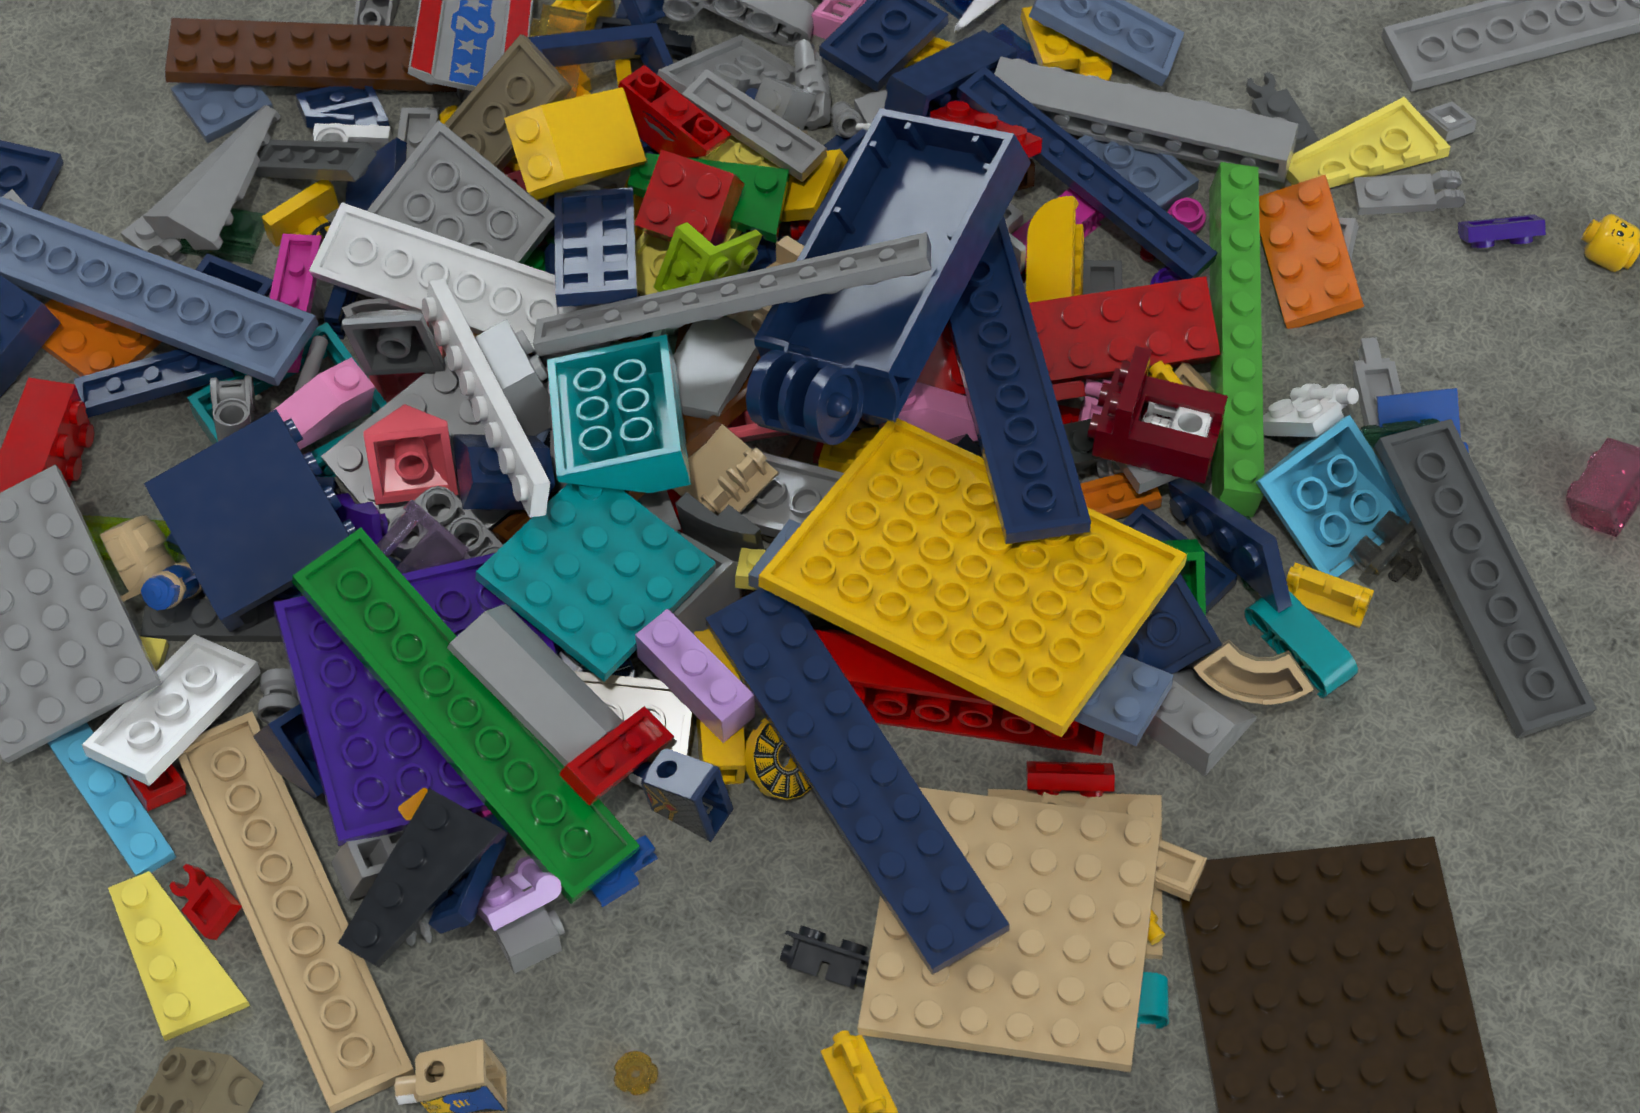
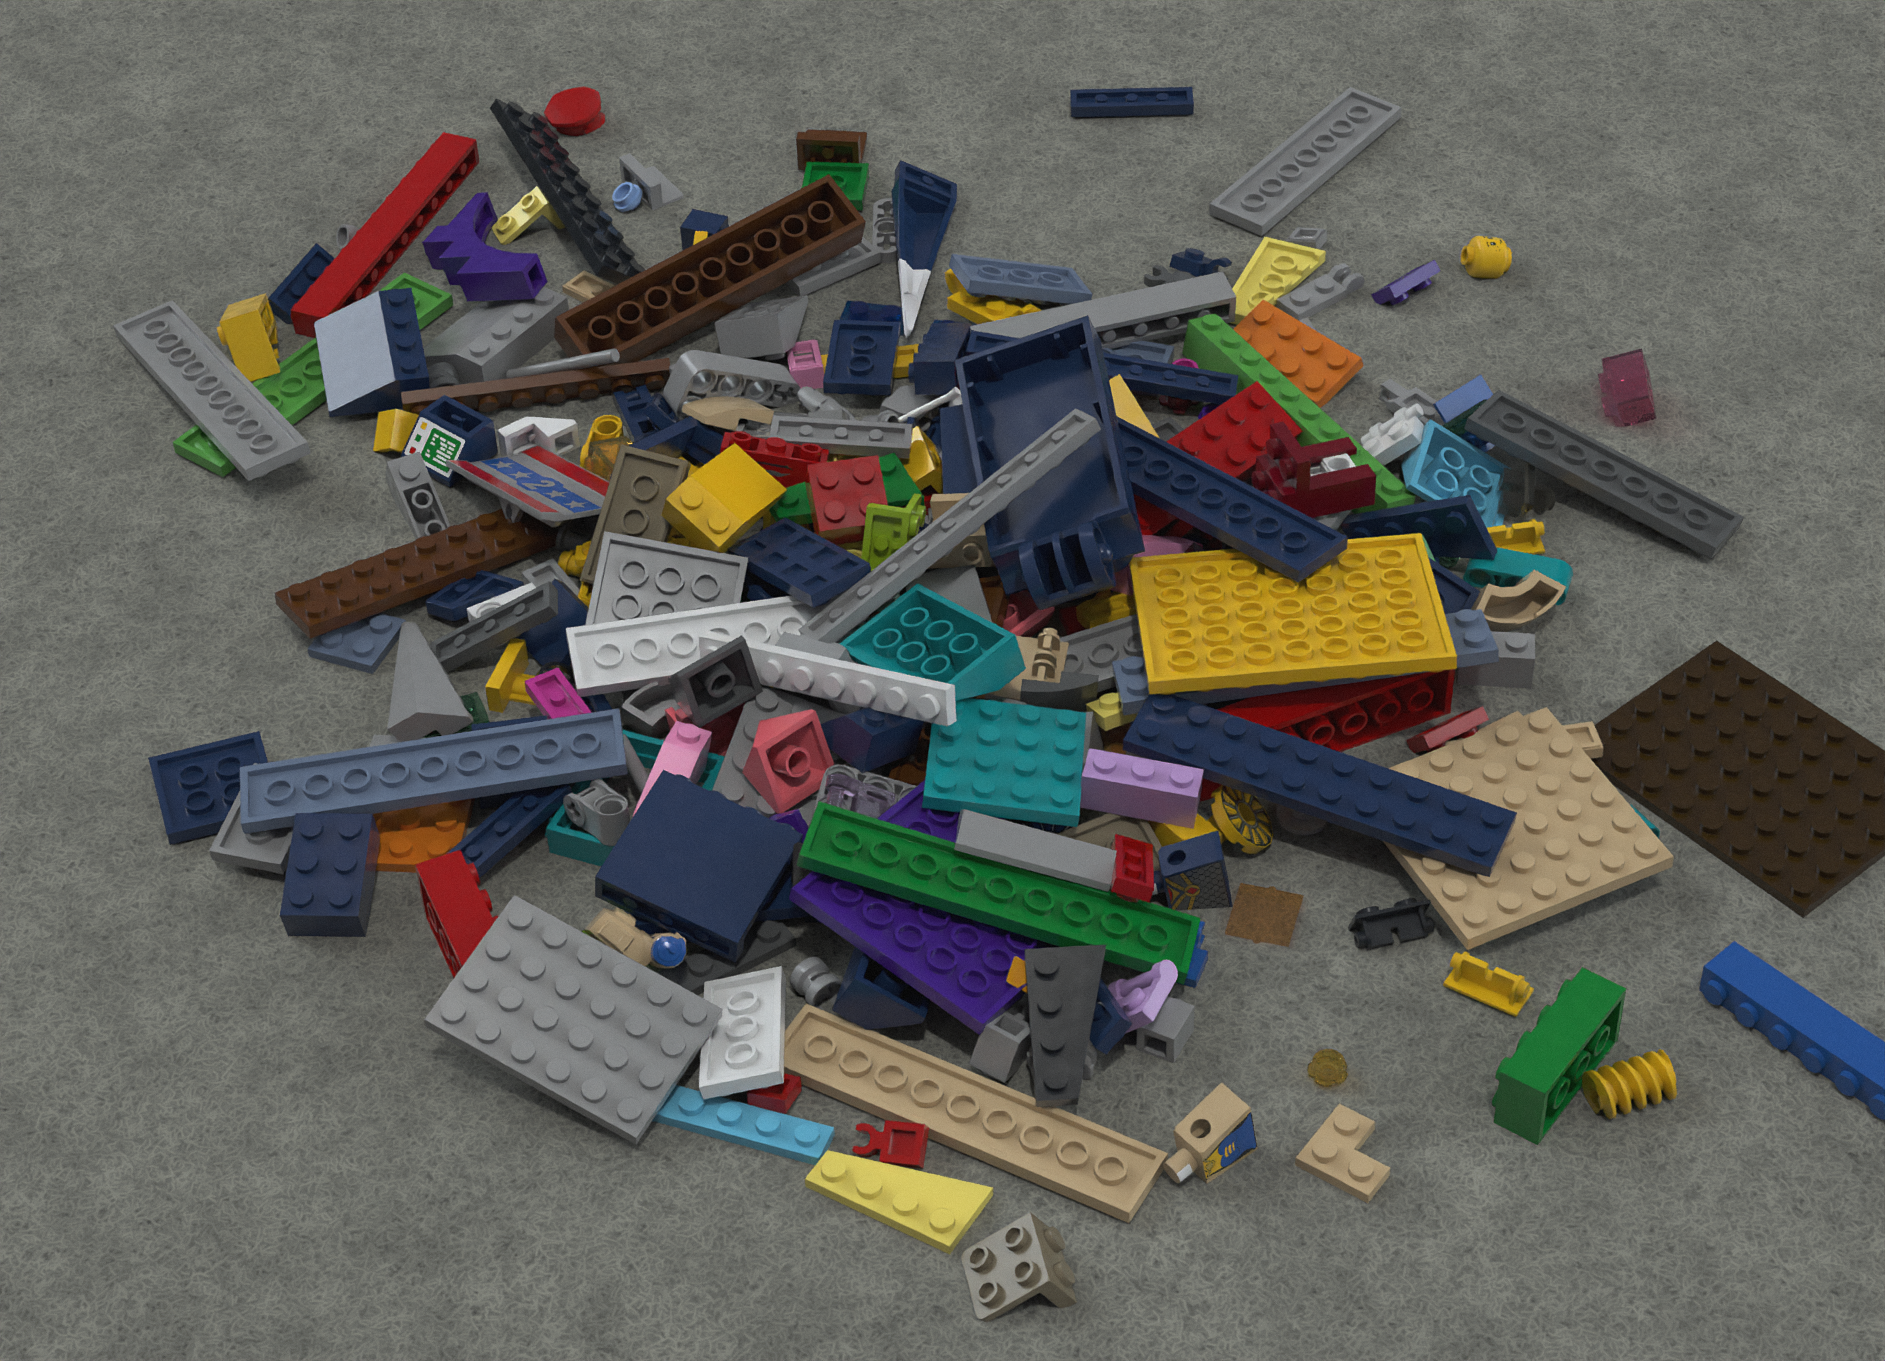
camera: 35 degrees left, 15 degrees down
(700, 29) = (726, 411): none -> tan slope
(729, 869) = (1264, 914): none -> clear orange piece
(1310, 92) = (1196, 264): none -> dark blue plate

